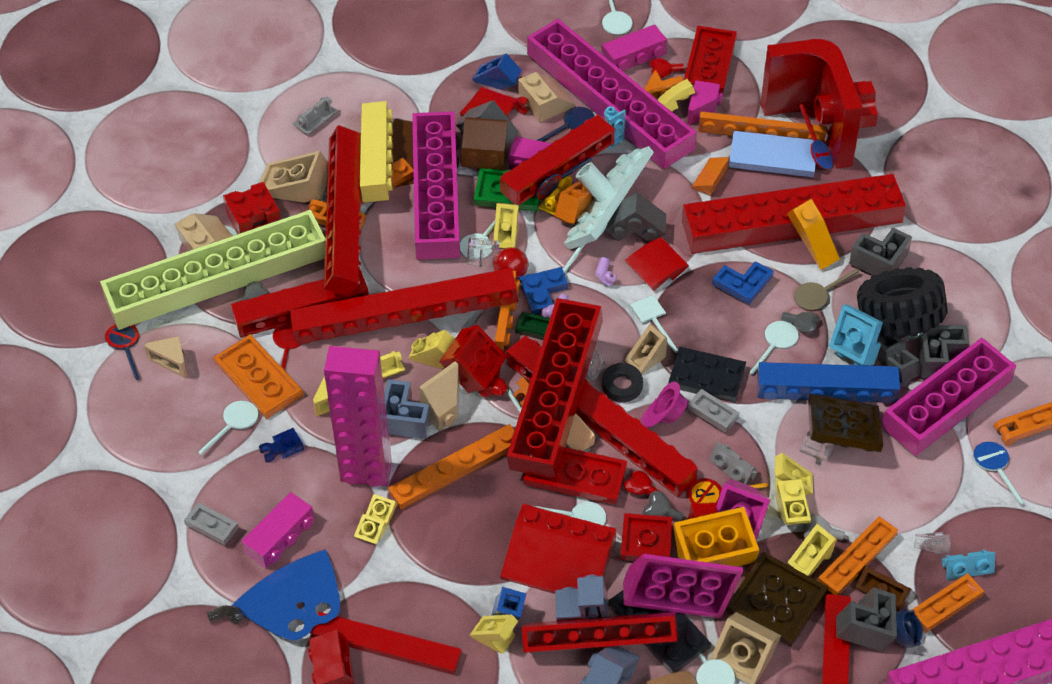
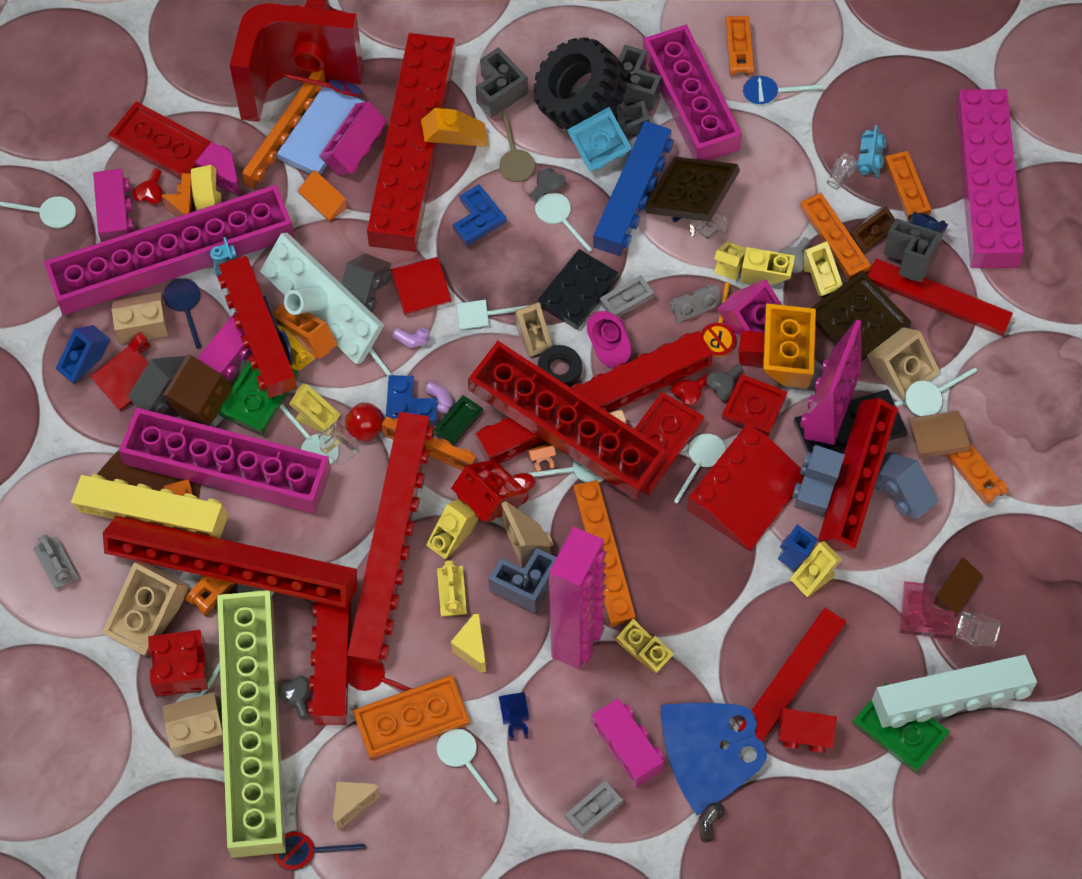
camera: 70 degrees left, 10 degrees up
(771, 173) = (353, 138): none -> dark pink brick

